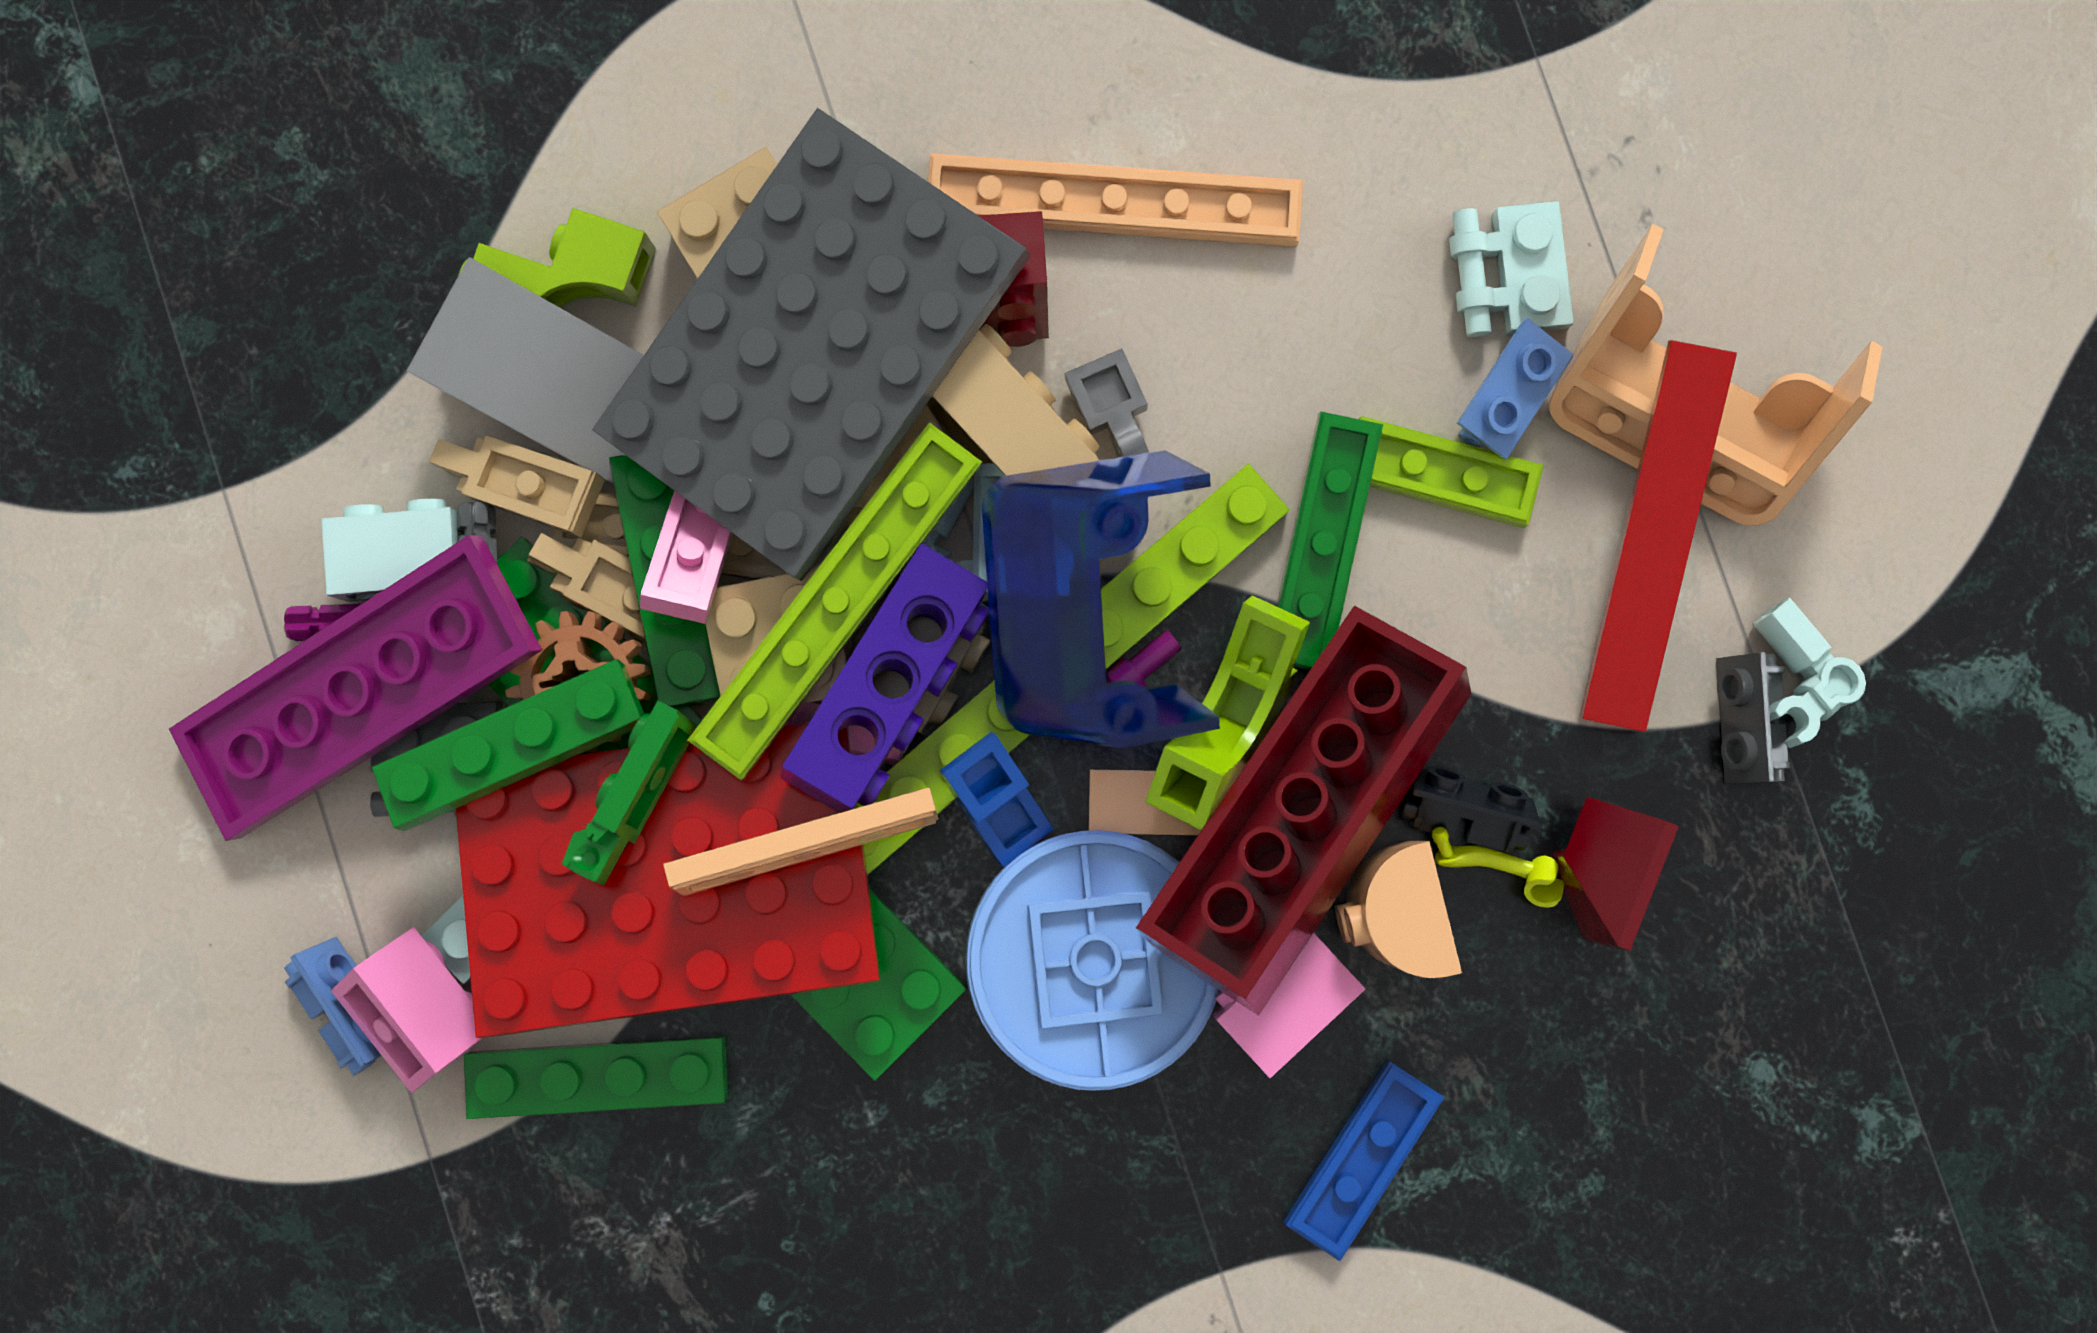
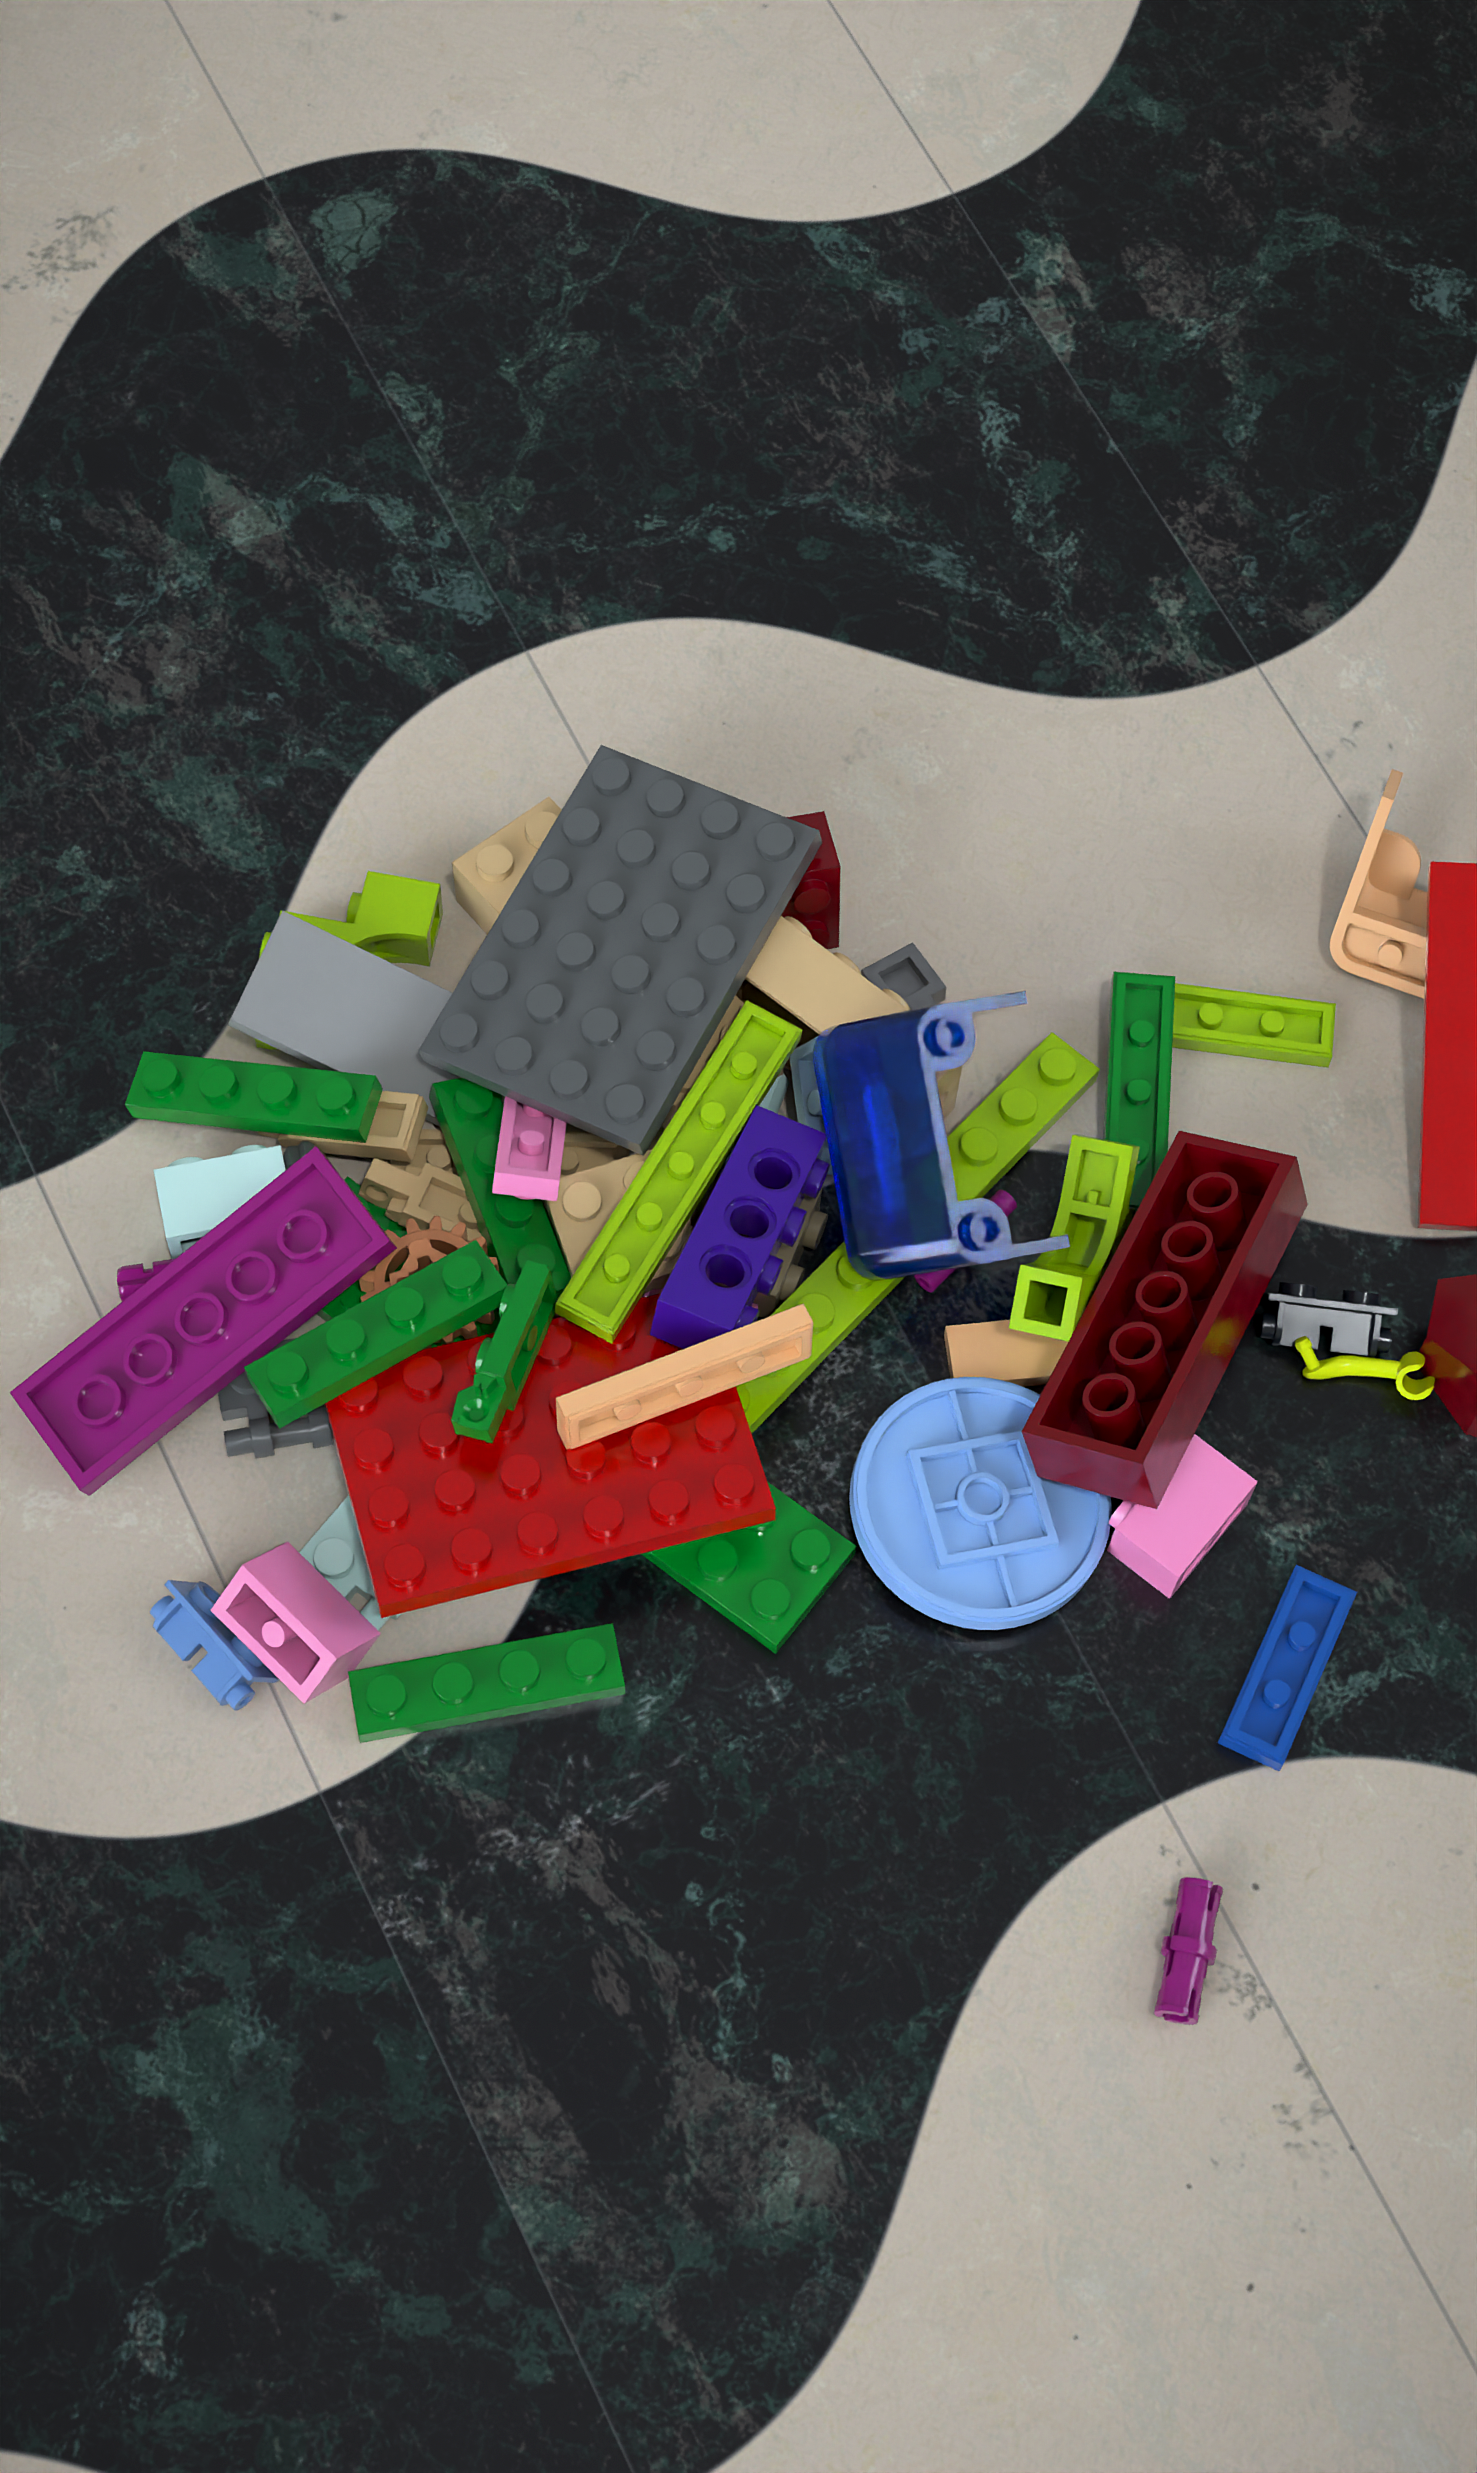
camera: 10 degrees left, 20 degrees down
(434, 445) = (254, 1096): none -> green plate
(996, 799) = (855, 1354): blue slope -> none
(1127, 199) = (932, 819): light nougat tile -> none
(1400, 911) = (1280, 1409): light nougat brick -> none
(1513, 390) = (1292, 937): medium blue hinge -> none
(1530, 268) = (1286, 834): light aqua plate -> none

